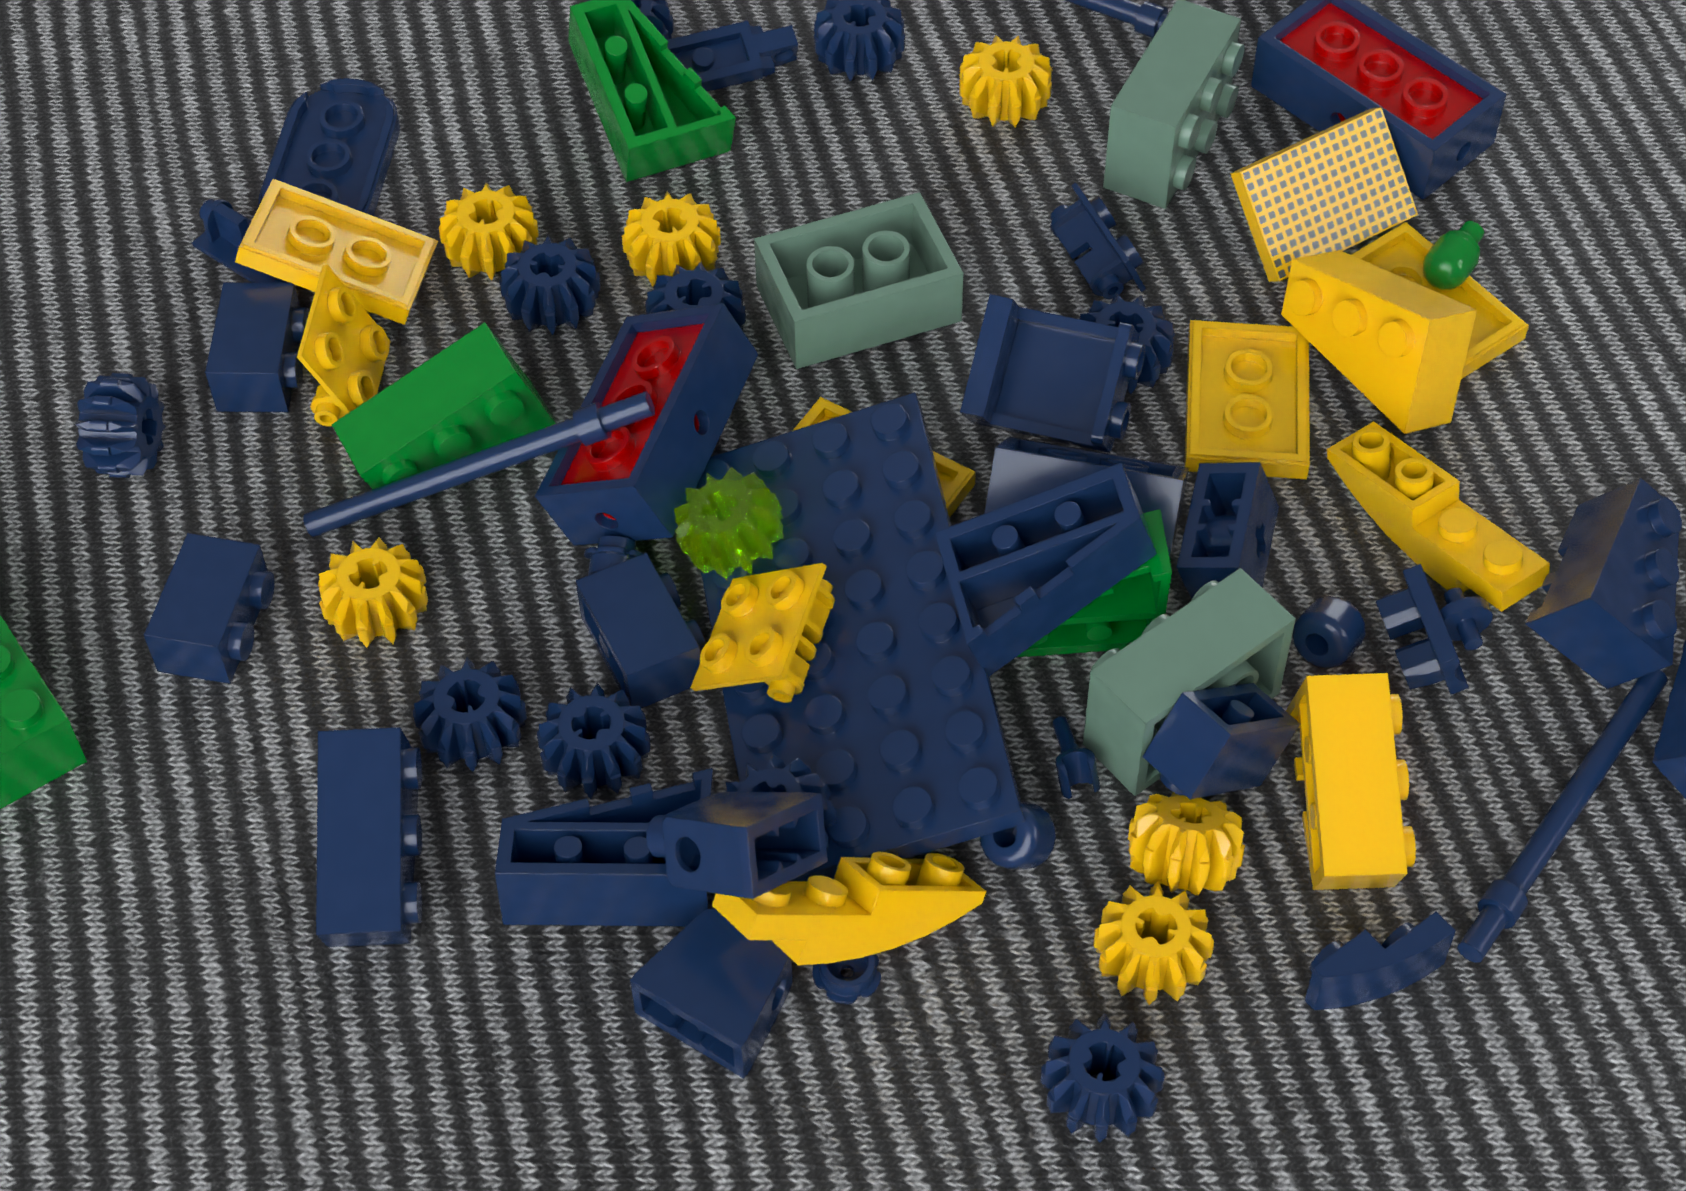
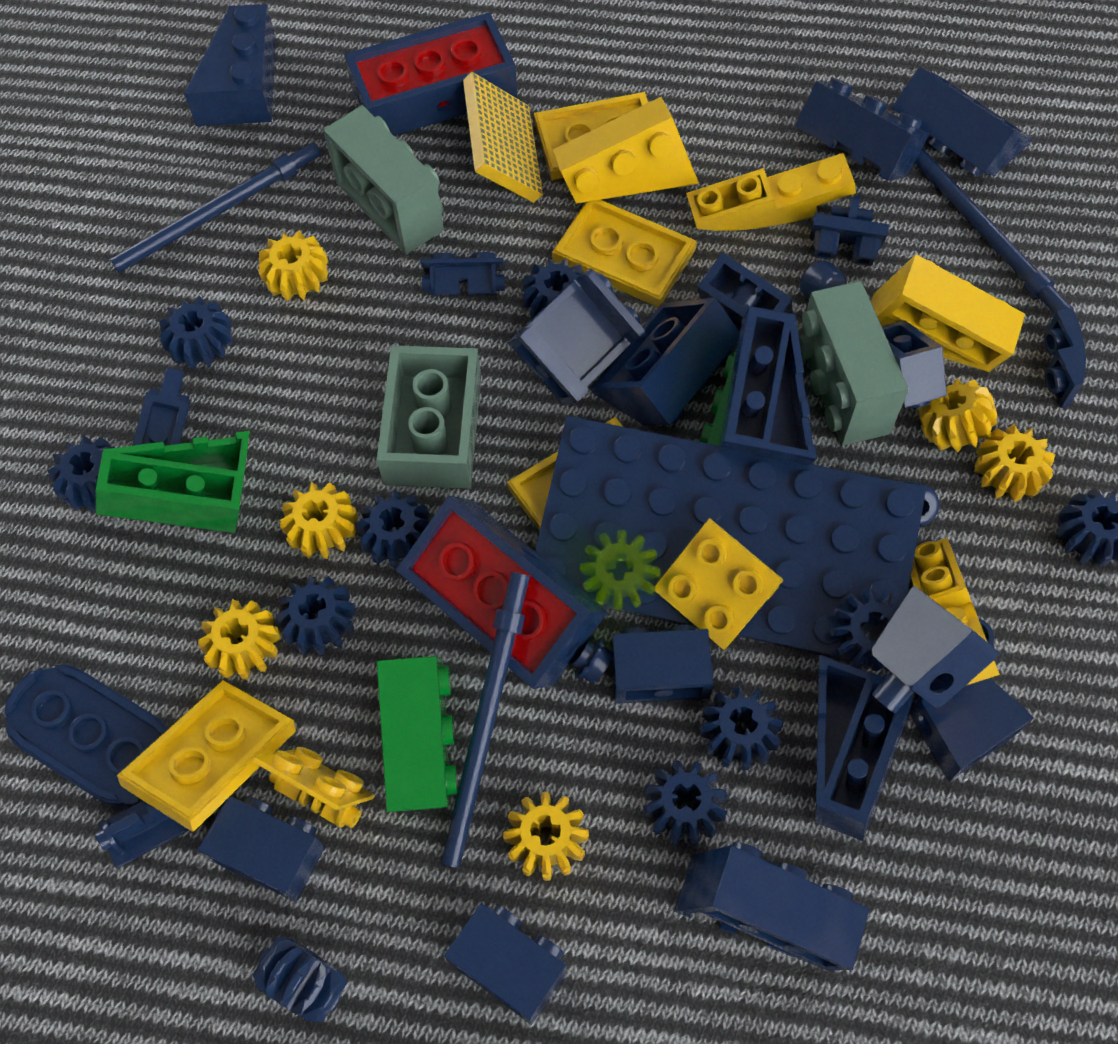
camera: 65 degrees left, 10 degrees up
(1074, 763) = (864, 451): dark blue hand -> none
(1453, 256) = (585, 99): green cylinder -> none

